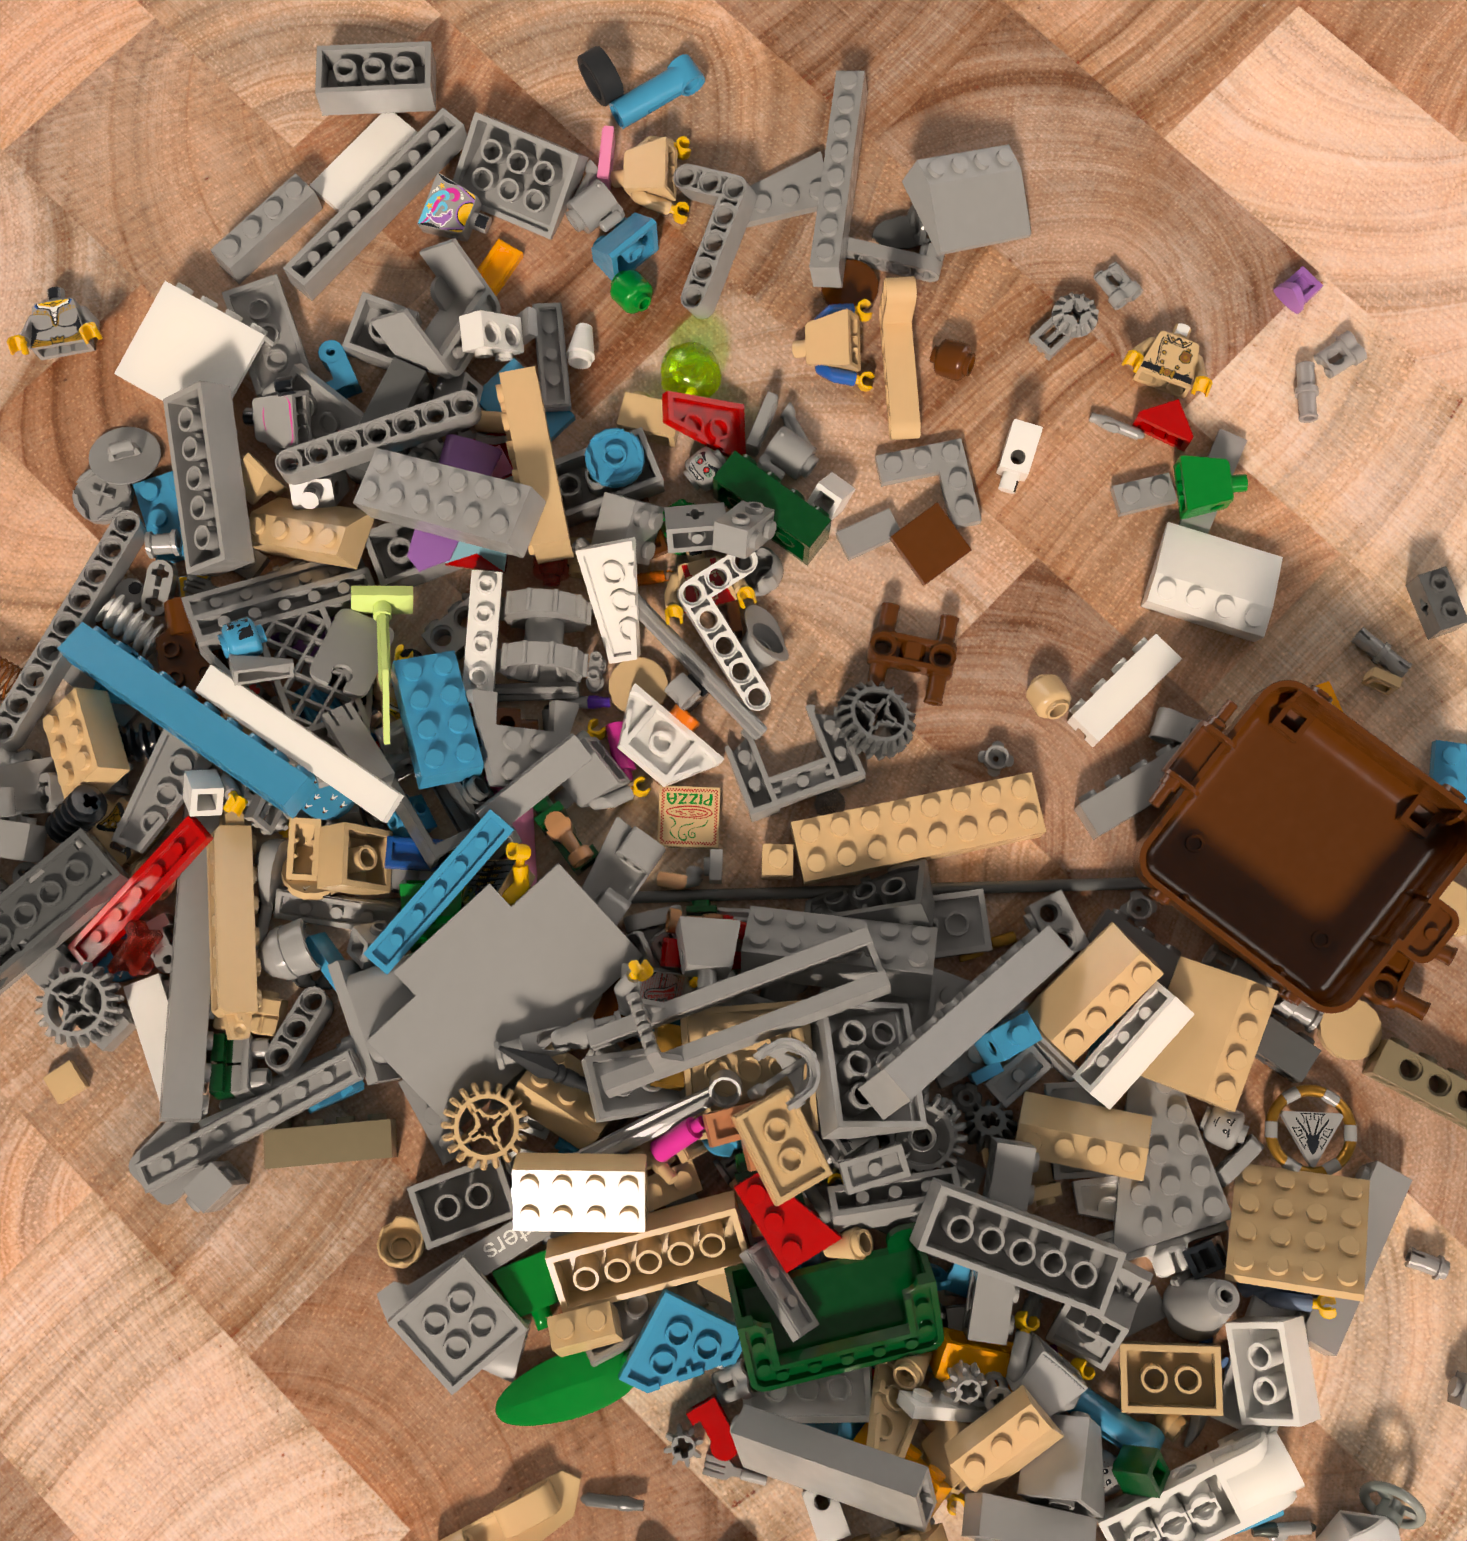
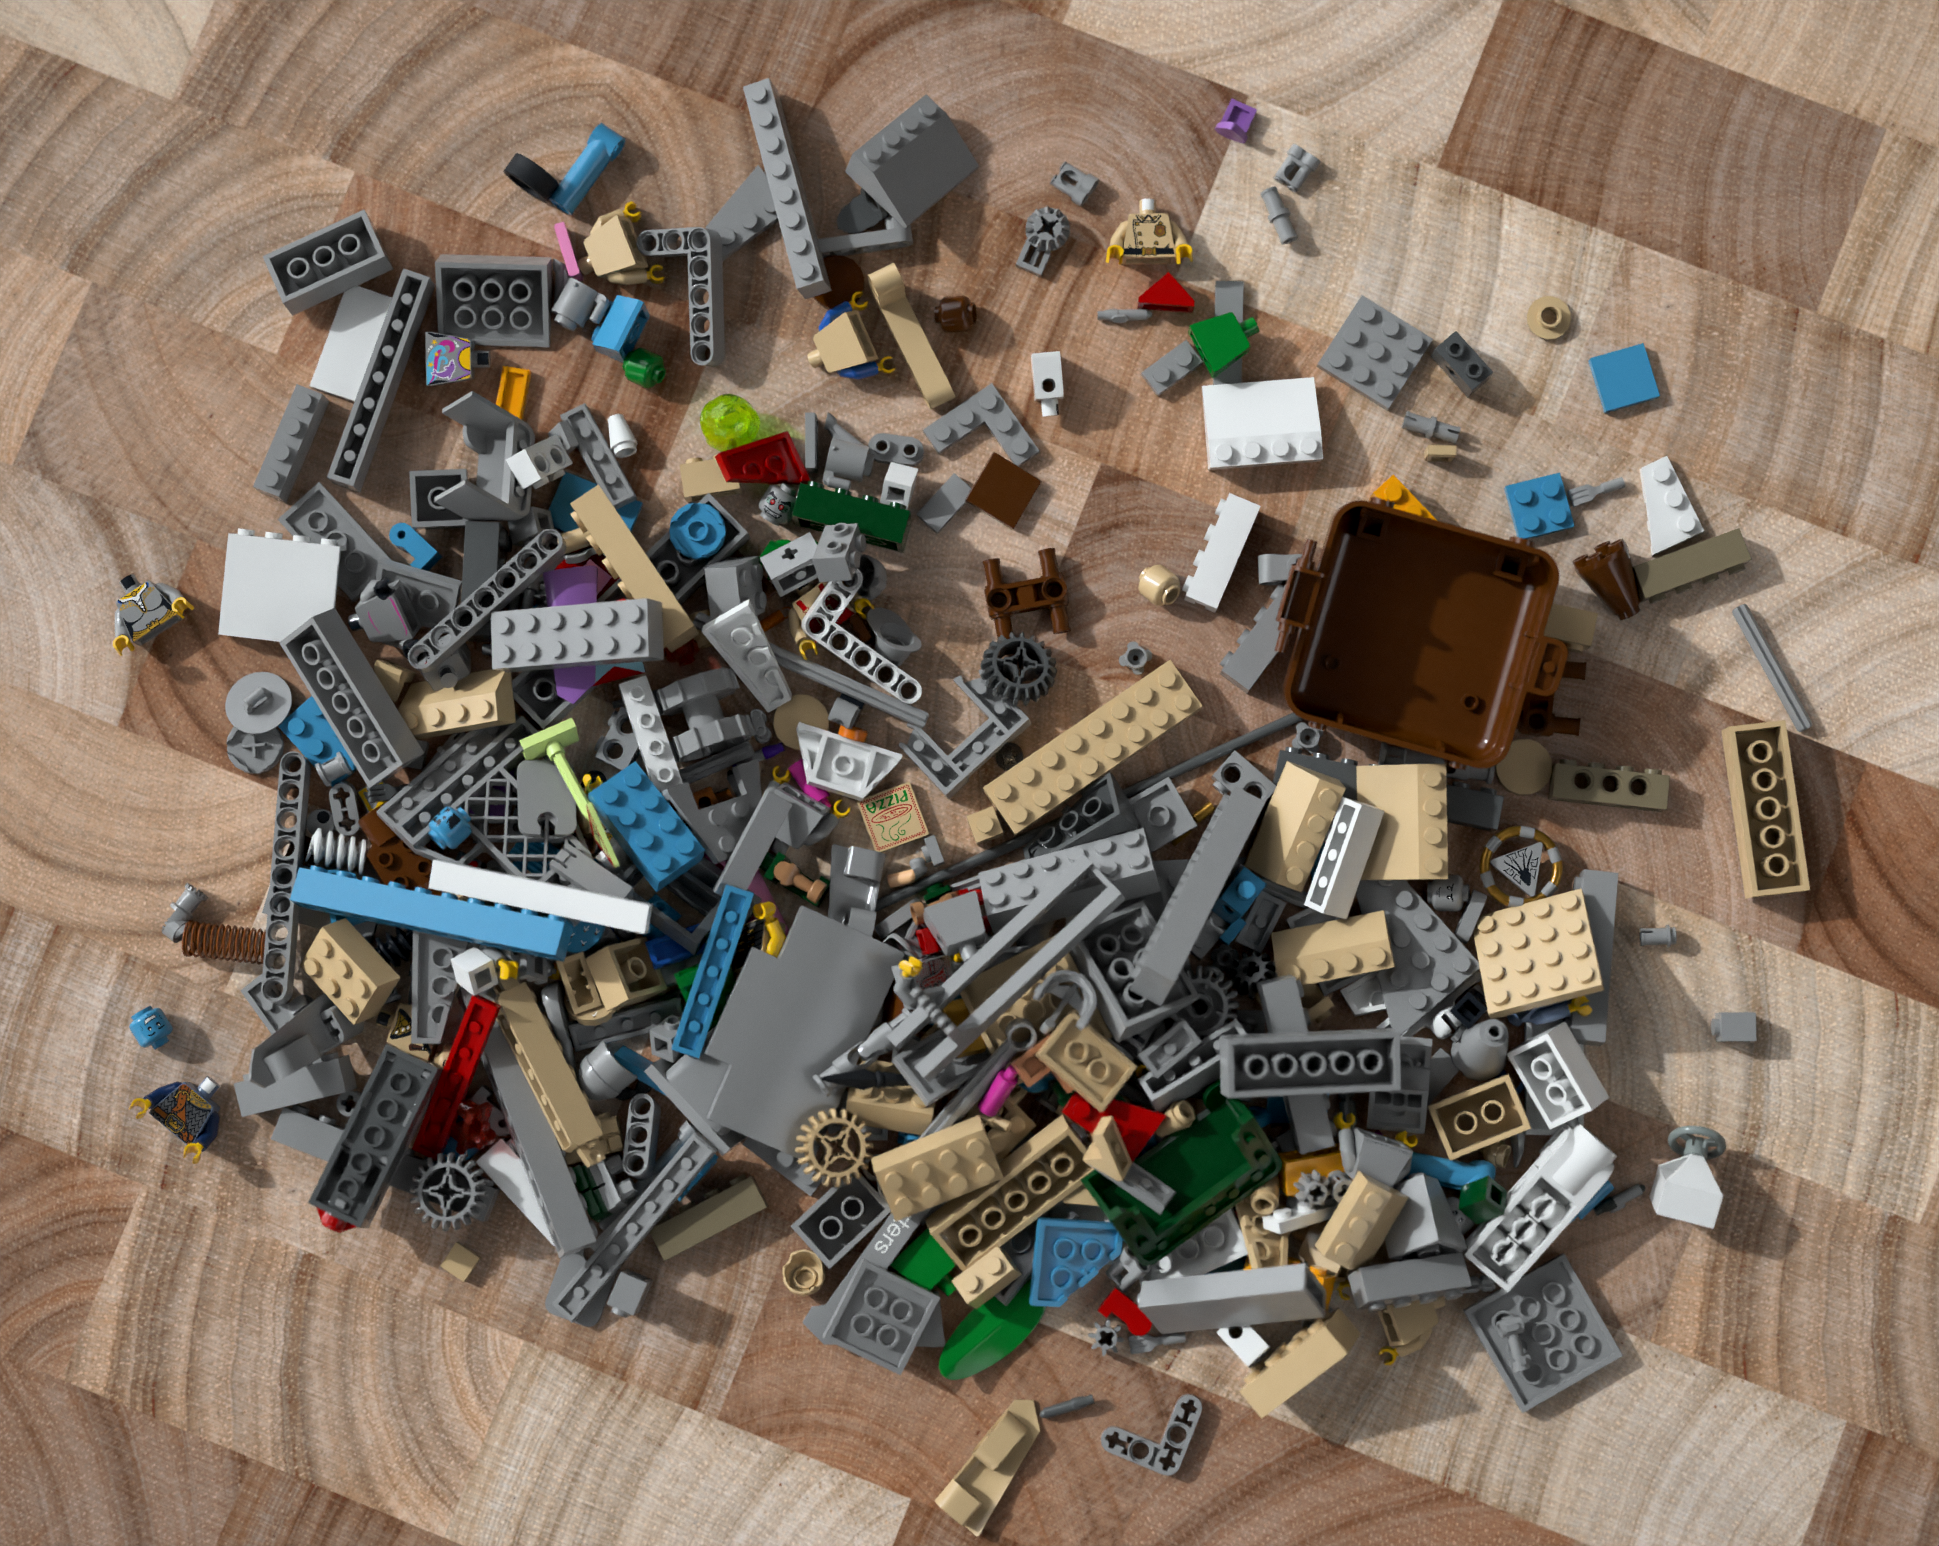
camera: 15 degrees left, 5 degrees up
(81, 809) = (370, 1035): black piece -> none
(259, 669) = (475, 847): light grey piece -> none
(475, 790) = (704, 873): dark grey plate -> none
(766, 1251) = (1108, 1150): none -> tan slope
(841, 463) = (895, 449): none -> light grey plate
(1351, 559) = (1374, 352): none -> light grey plate

